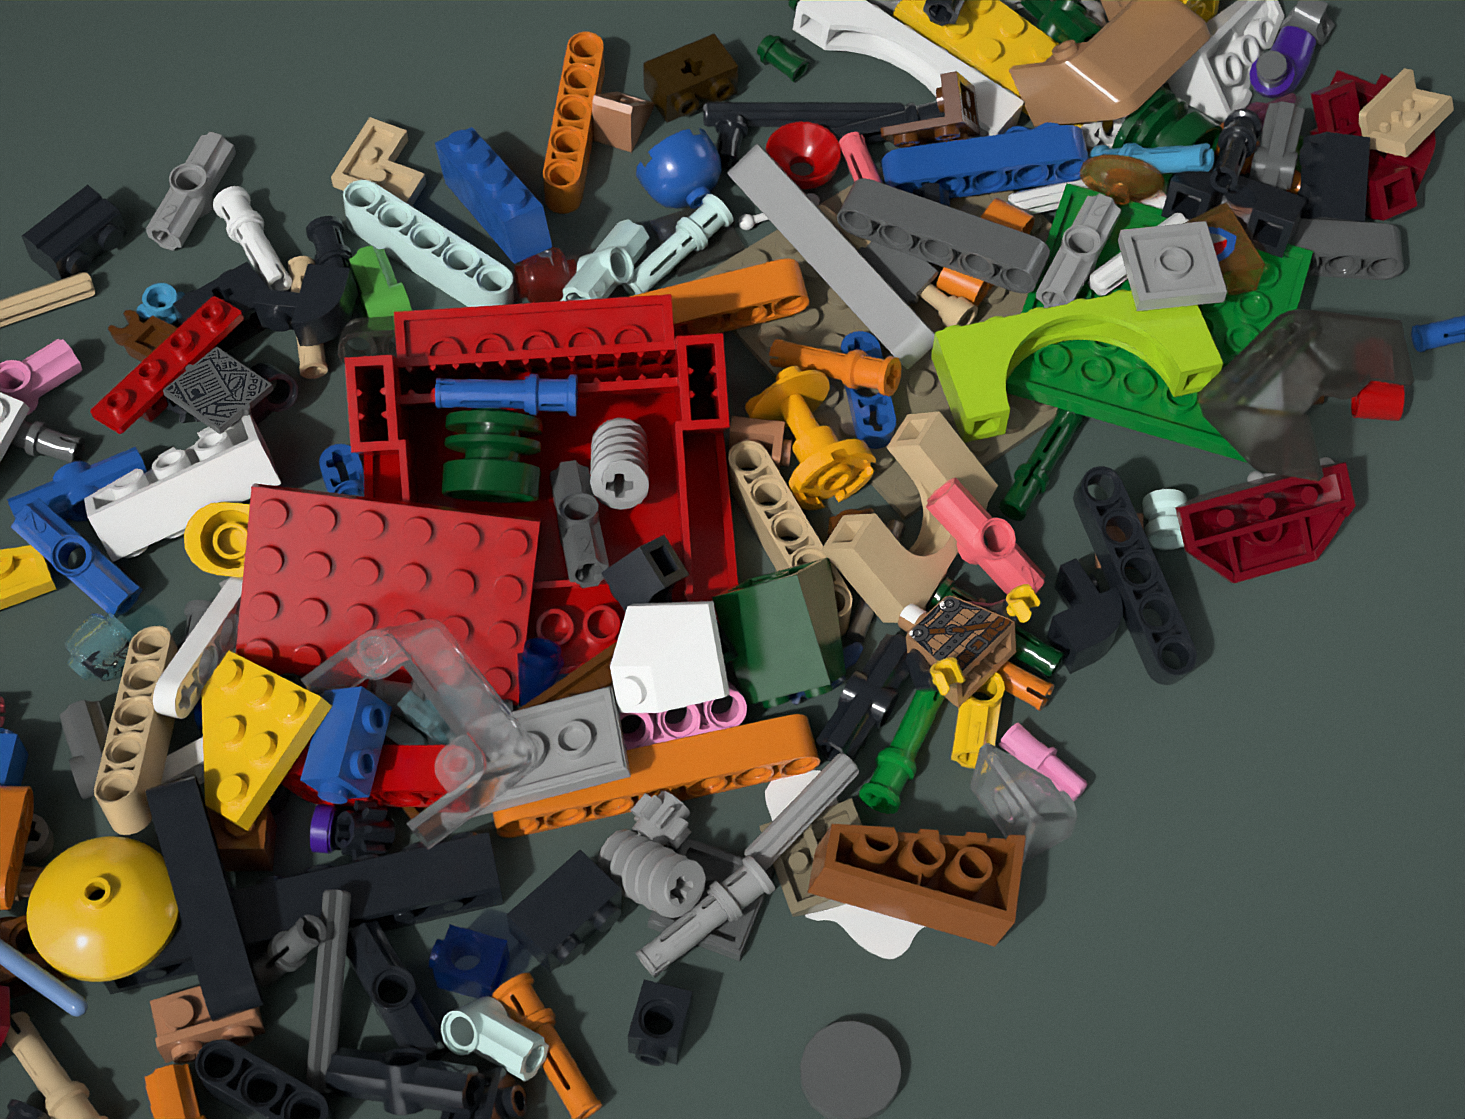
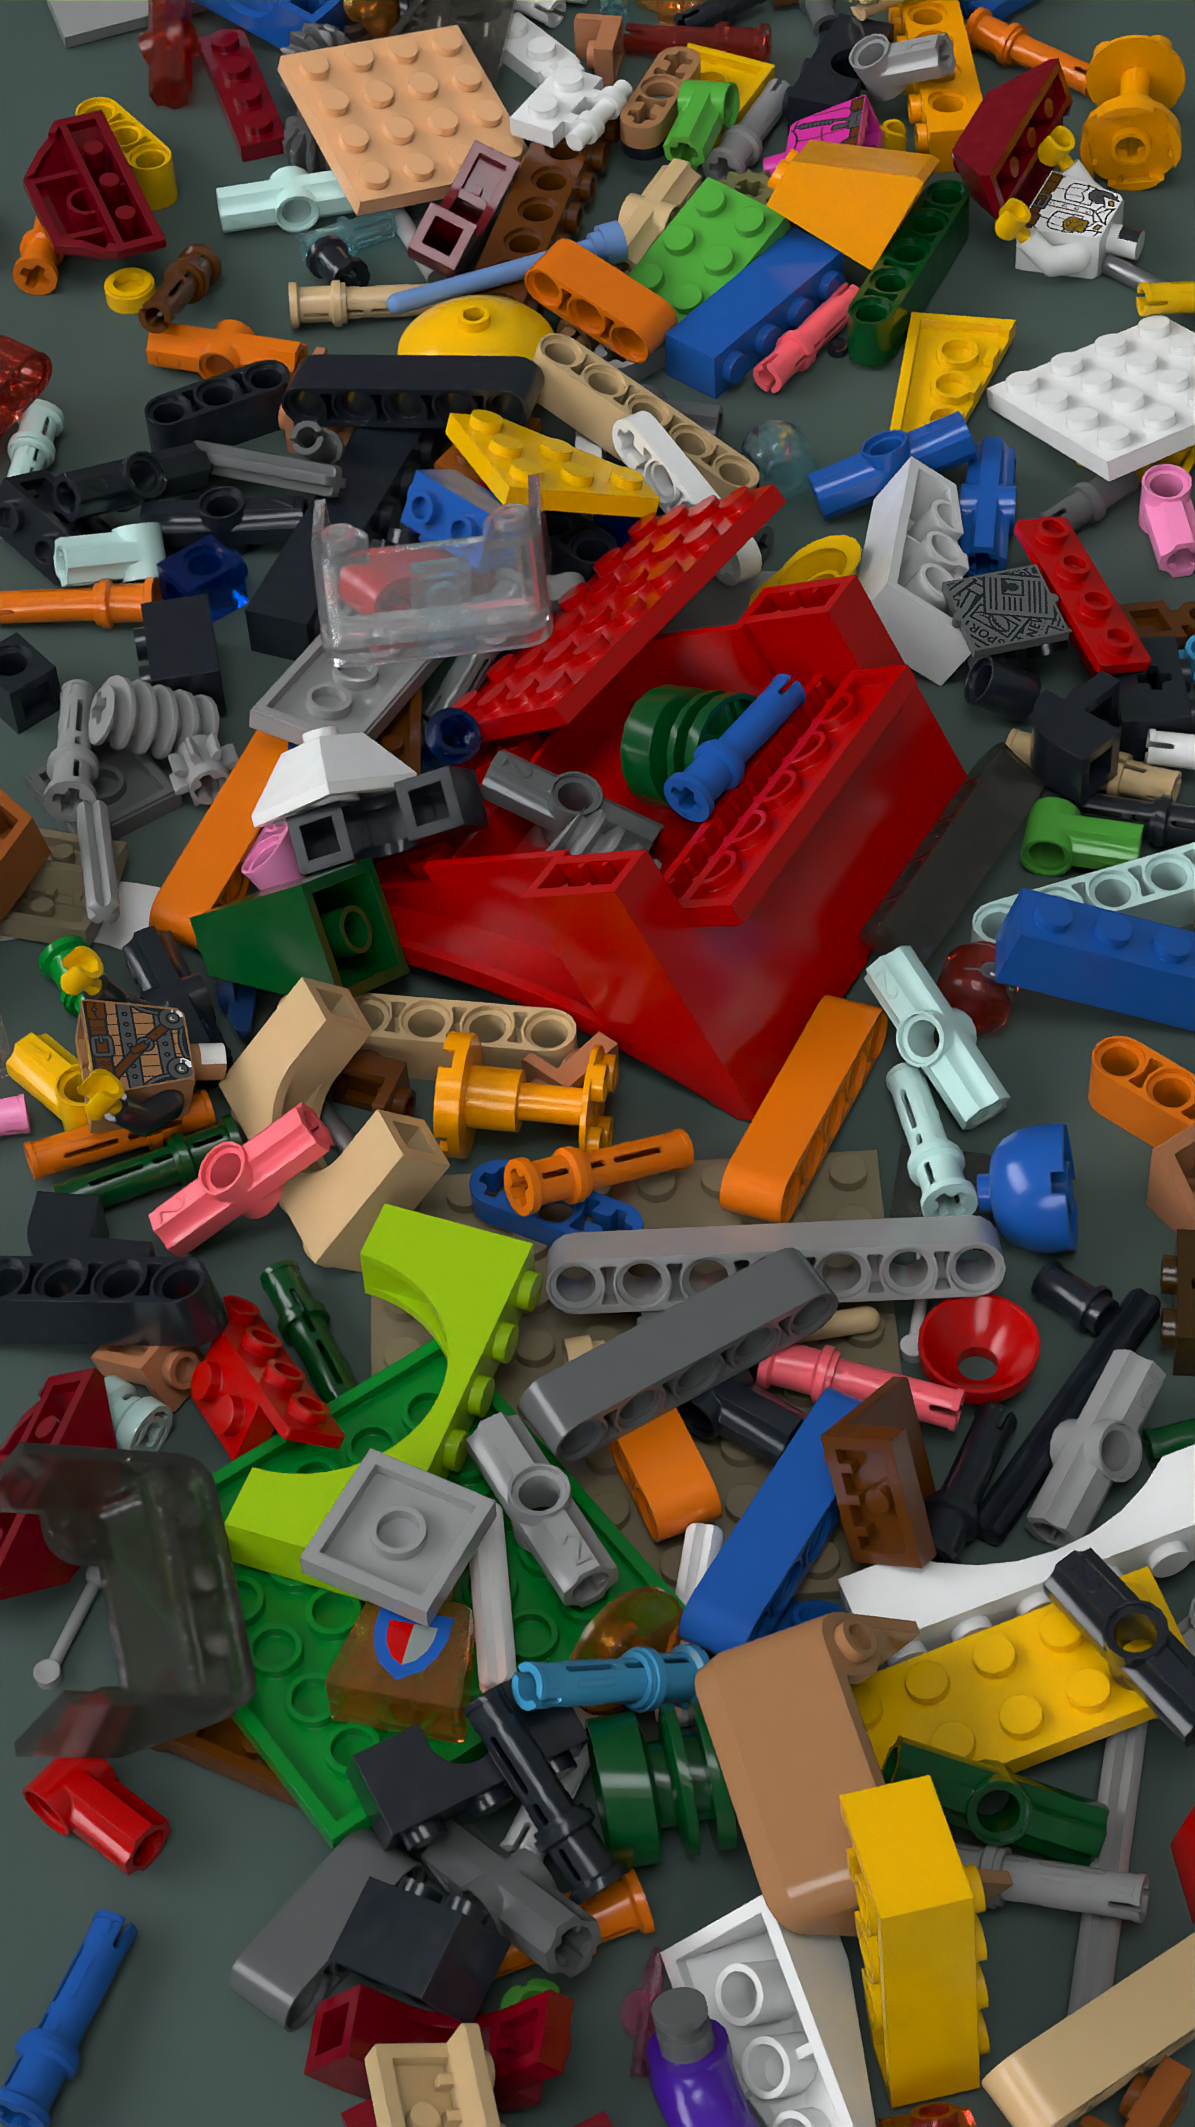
camera: 130 degrees right, 10 degrees down
(826, 79) = (1095, 1449): none -> light grey piece
(1108, 438) = (255, 1386): none -> red bracket

